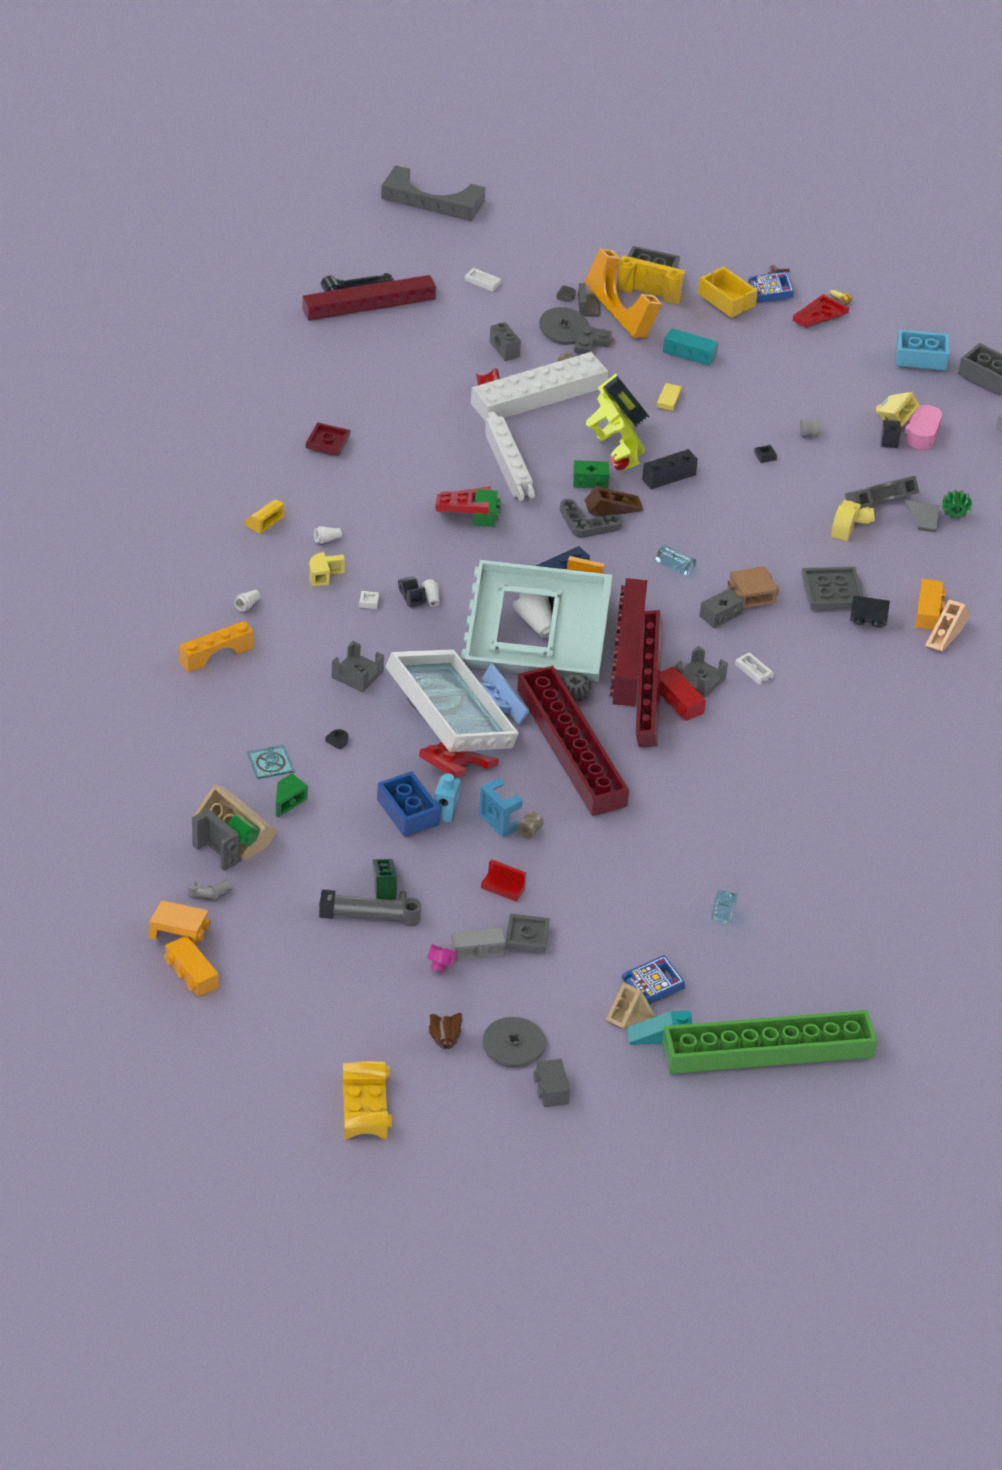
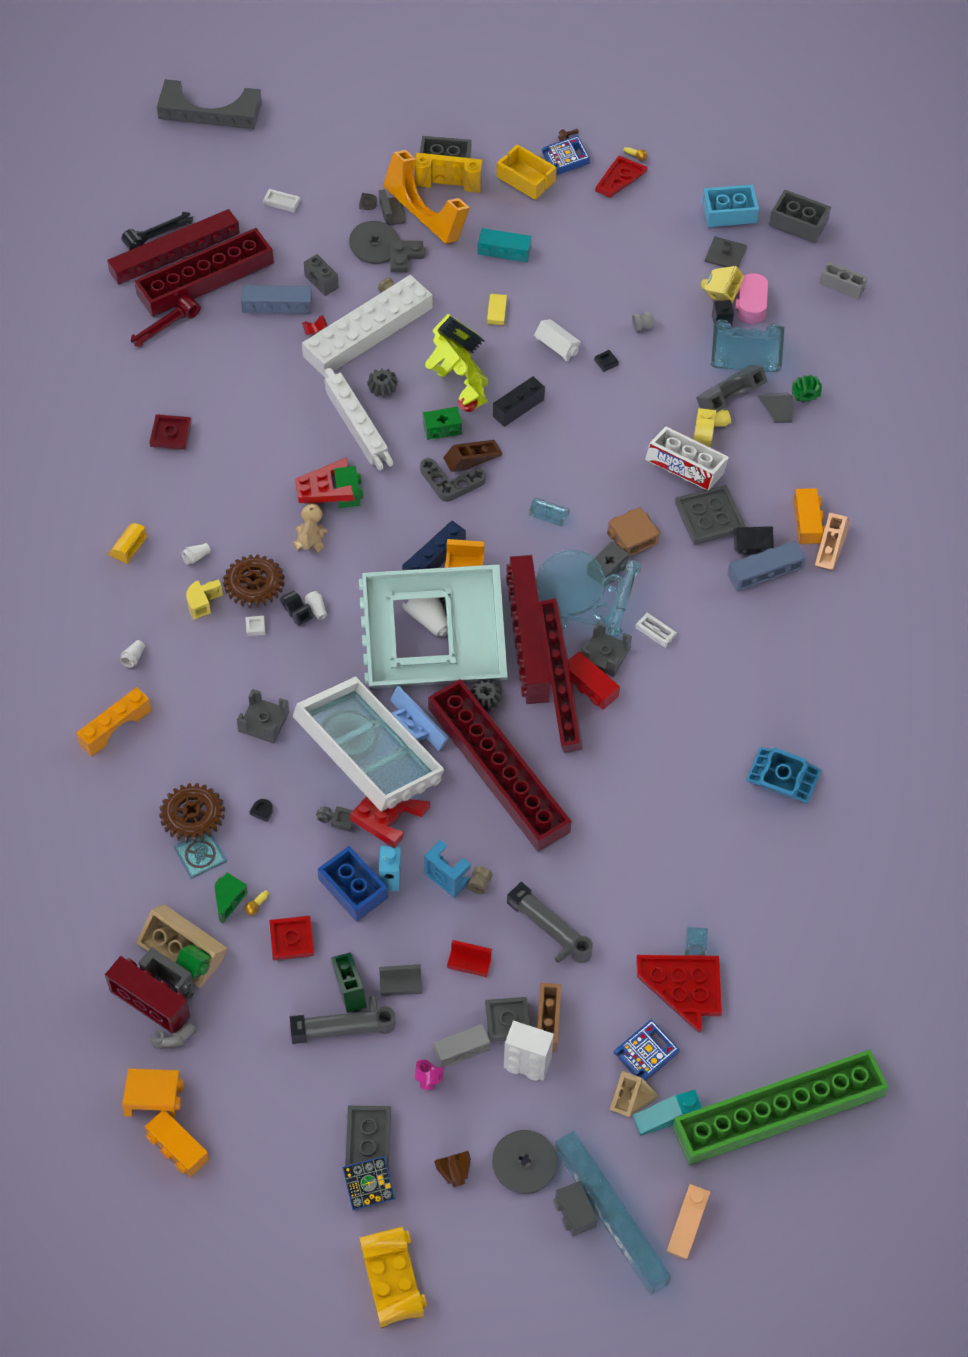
camera: 10 degrees left, 15 degrees up
(193, 849) = (147, 994): none -> dark red brick
(271, 728) = (191, 822): none -> reddish brown gear
(309, 807) = (252, 907): none -> piece
(339, 836) = (291, 938): none -> red plate
(362, 1027) = (368, 1183): none -> tile
(368, 346) = (185, 308): none -> dark red piece
(371, 996) = (367, 1133): none -> dark grey plate
(377, 564) = (254, 589): none -> reddish brown gear
(393, 320) = (204, 271): none -> dark red brick
(408, 757) = (340, 818): none -> dark grey plate
(434, 884) = (400, 980): none -> dark grey panel
(440, 537) = (308, 532): none -> tan animal
(457, 353) = (276, 299): none -> sand blue brick
(539, 950) = (528, 1051): none -> white brick
(541, 433) = (382, 382): none -> dark grey gear
(566, 935) = (549, 1010): none -> medium nougat brick
(587, 1092) = (613, 1213): none -> clear light blue brick
(611, 890) = (522, 899): none -> dark grey piece
(657, 1111) = (688, 1221): none -> light nougat slope
(689, 615) = (579, 585): none -> clear light blue piece
(703, 937) = (684, 983): none -> red wing
(721, 427) = (557, 339): none -> white brick
(821, 537) = (686, 458): none -> white brick
(848, 795) = (784, 774): none -> dark azure slope
(876, 634) = (766, 565): none -> sand blue brick
(895, 462) = (741, 347): none -> clear light blue windscreen
(908, 384) = (725, 252): none -> dark grey piece

